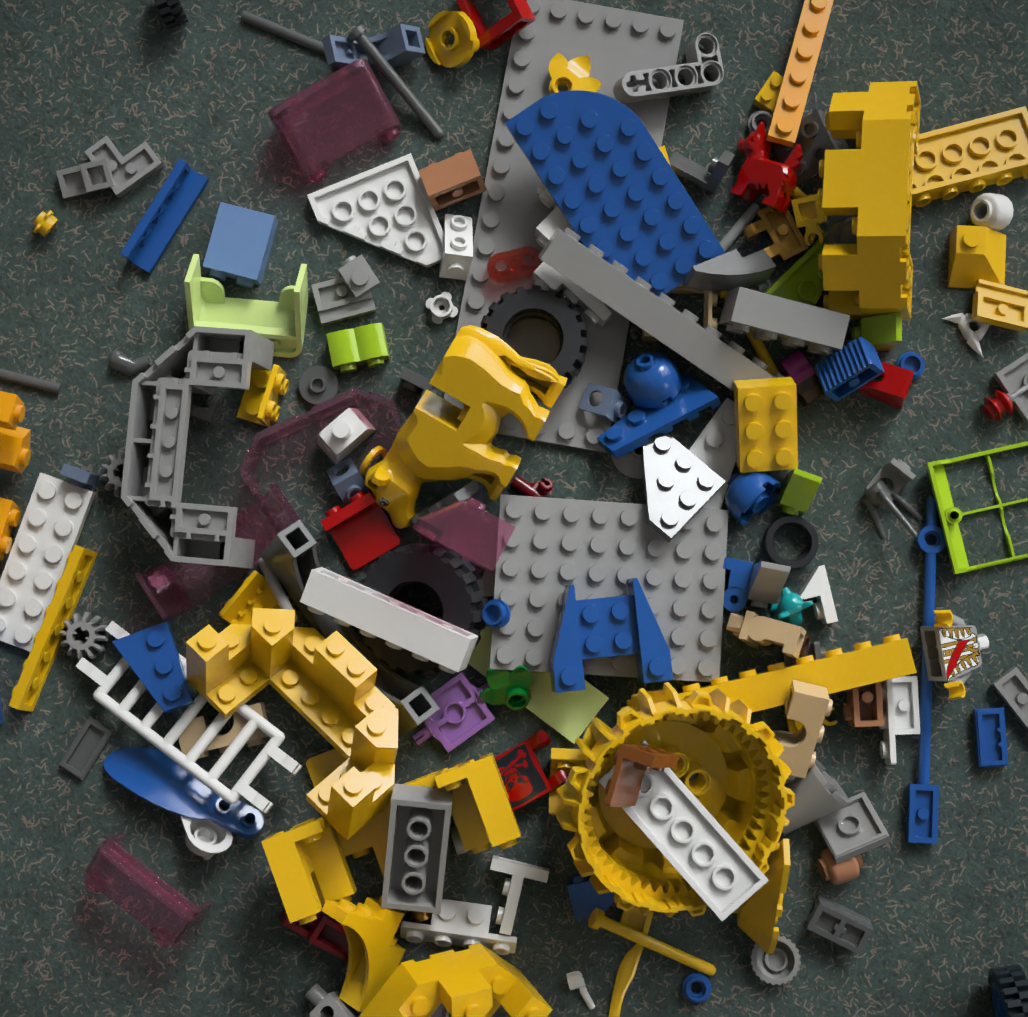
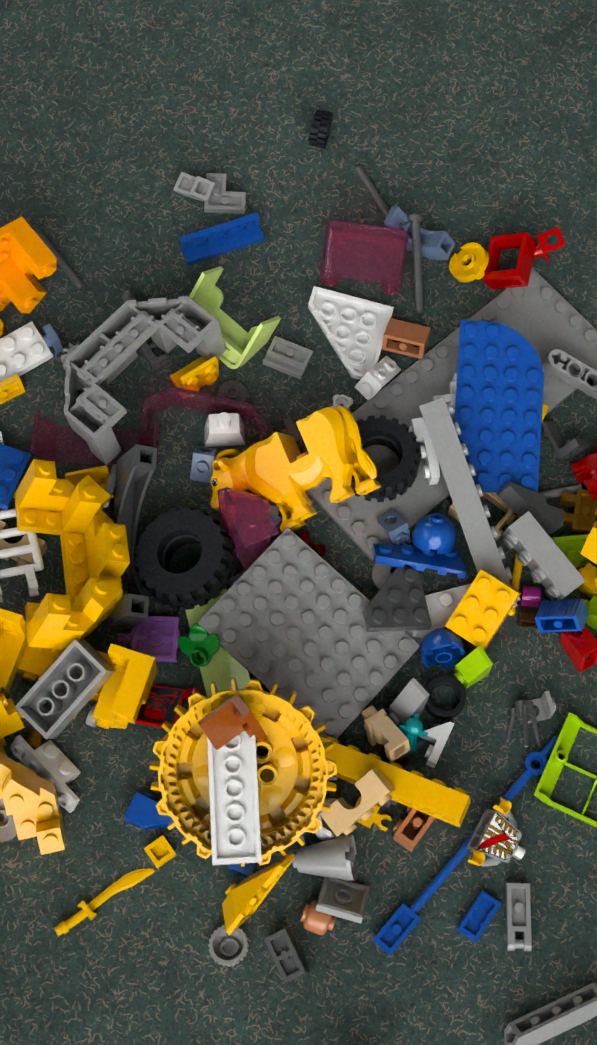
camera: 30 degrees right, 15 degrees down
(44, 223) = (151, 194): yellow plate -> none
(240, 245) = (252, 284): medium blue brick -> none
(358, 276) = (306, 350): light grey bracket -> none
(358, 347) = (273, 390): lime brick -> none
(361, 530) = (188, 487): red bracket -> none
(388, 619) = (161, 543): white brick -> none
(496, 613) = (227, 590): blue plate -> none
(513, 886) = (102, 770): white bracket -> none
(515, 265) = (403, 411): clear red plate -> none
(571, 74) = (528, 331): yellow plate -> none
(576, 981) = (92, 859): white hand -> none
(598, 919) = (159, 871): yellow bar -> none
(604, 630) = (284, 651): blue wedge -> none
(700, 996) = (164, 917): blue plate -> none
(737, 583) = (386, 698): blue leg -> none
(899, 713) = (433, 852): white bracket -> none

